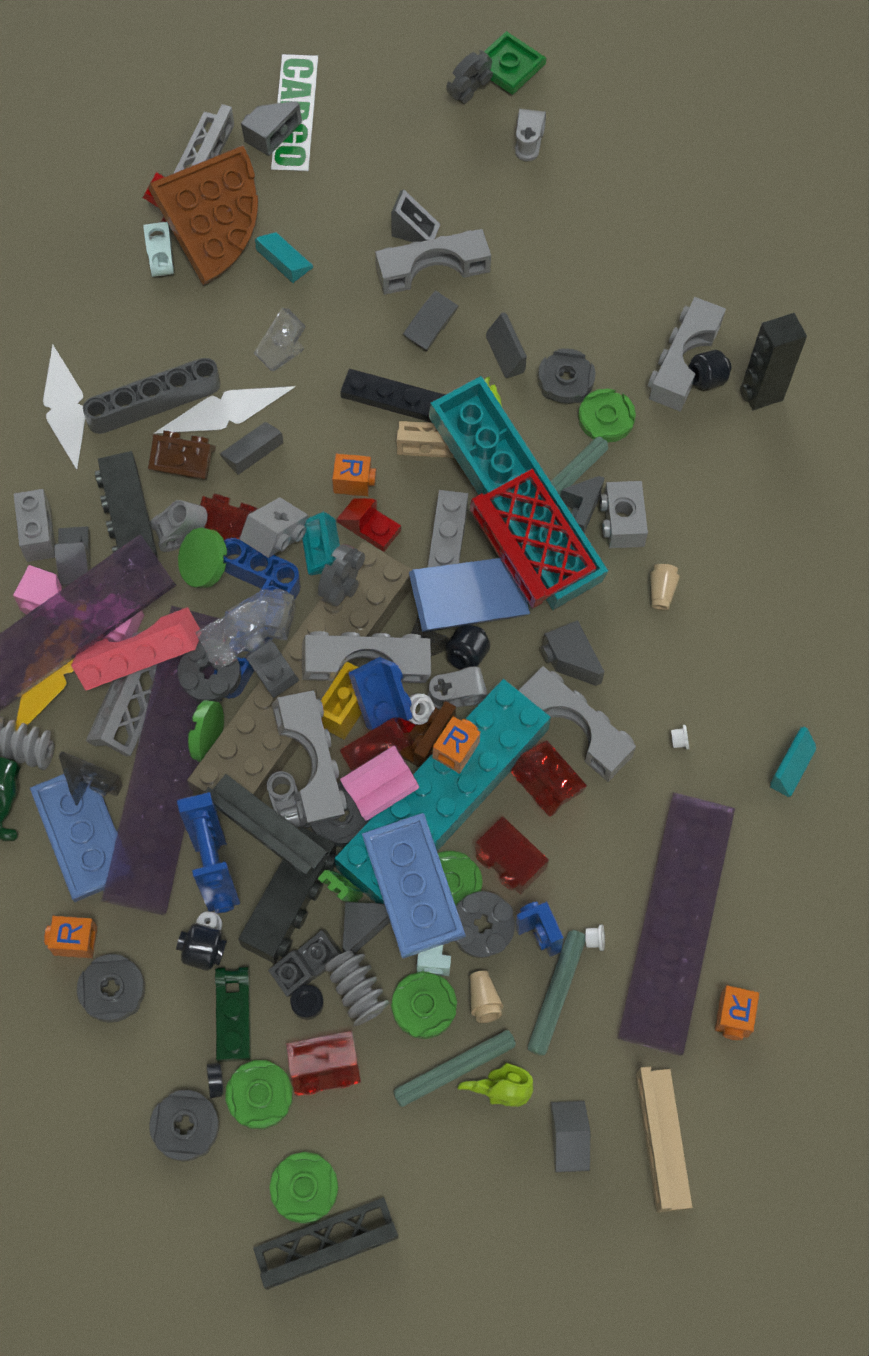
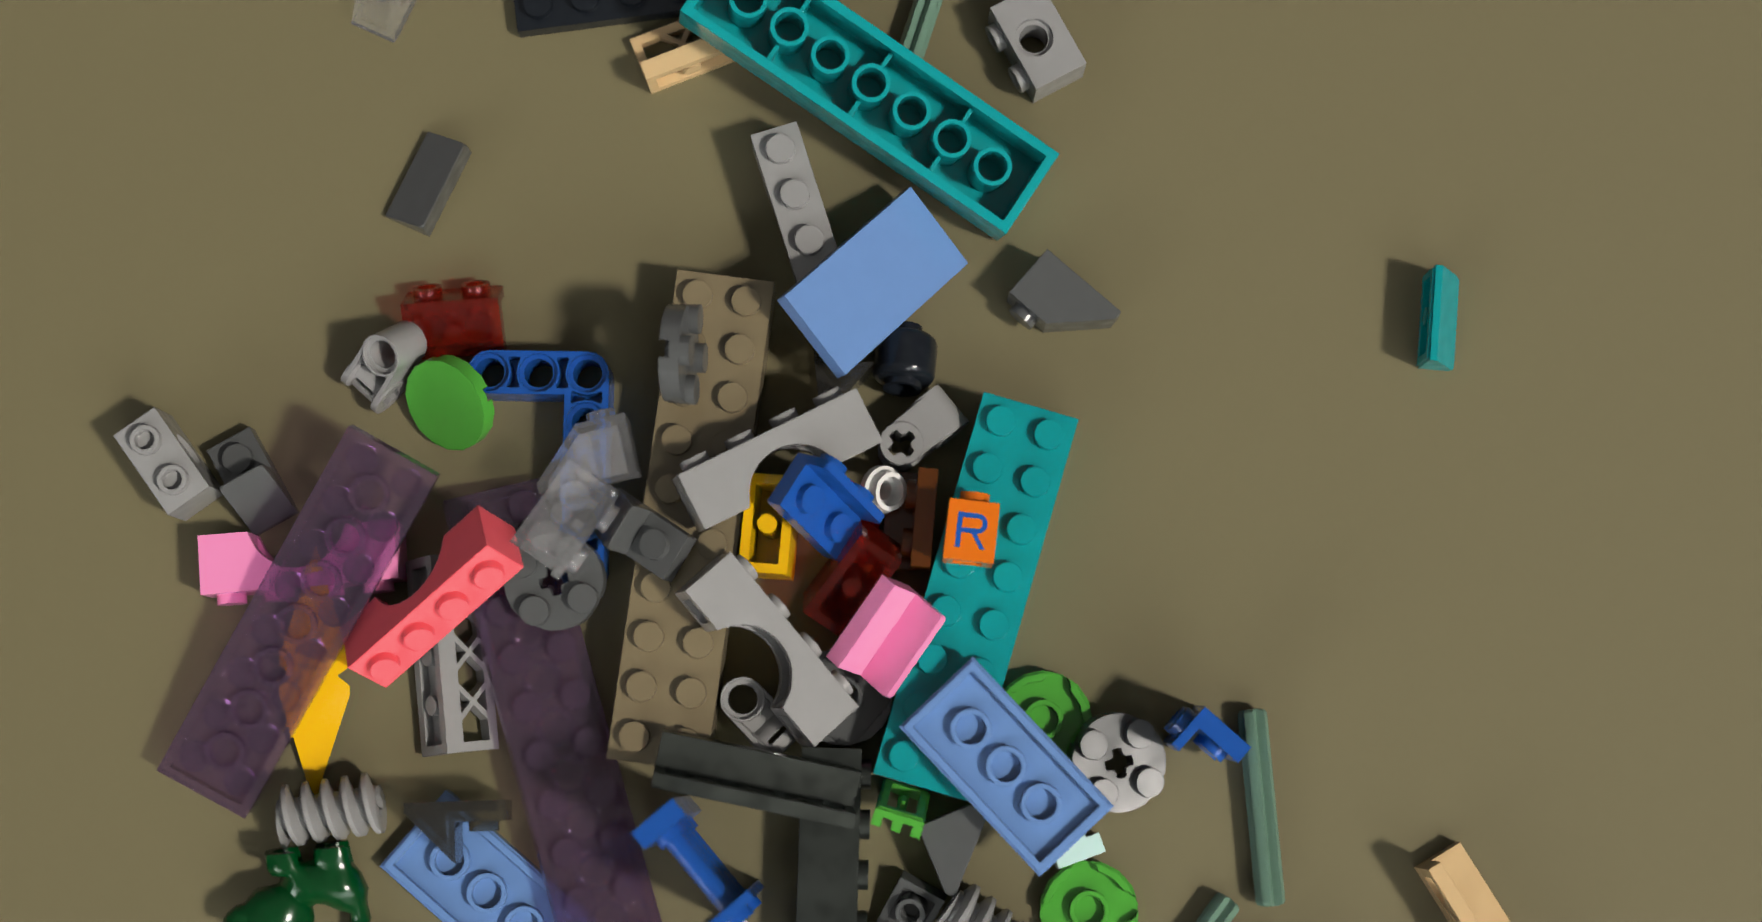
camera: 25 degrees left, 15 degrees up
(65, 414) = (116, 257): white sticker -> none
(124, 500) = (292, 370): pearl dark grey brick -> none
(141, 405) = (210, 175): dark grey beam -> none
(181, 456) = (329, 247): reddish brown bracket -> none
(208, 728) = (595, 662): bright green tile -> none
(233, 406) = (343, 150): white sticker -> none
(274, 527) = (534, 306): light grey brick -> none
(320, 542) = (611, 292): teal slope -> none
(353, 475) = (606, 162): orange brick -> none
(368, 523) = (664, 227): red slope -> none
(484, 998) = (1167, 863): tan cone -> none
(509, 550) = (904, 190): red fence -> none
(510, 856) = (1111, 645): clear red brick -> none
(547, 777) = (1109, 503): clear red bracket -> none
(583, 499) = (966, 44): dark grey slope -> none
(595, 937) = (1279, 706): white piece -> none
(606, 745) = (1171, 420): light grey arch -> none
(663, 585) = (1141, 131): tan cone -> none
(676, 925) = (1378, 629): clear purple plate -> none
(680, 738) = (1266, 356): white piece -> none
(737, 1012) = (1516, 723): orange brick -> none

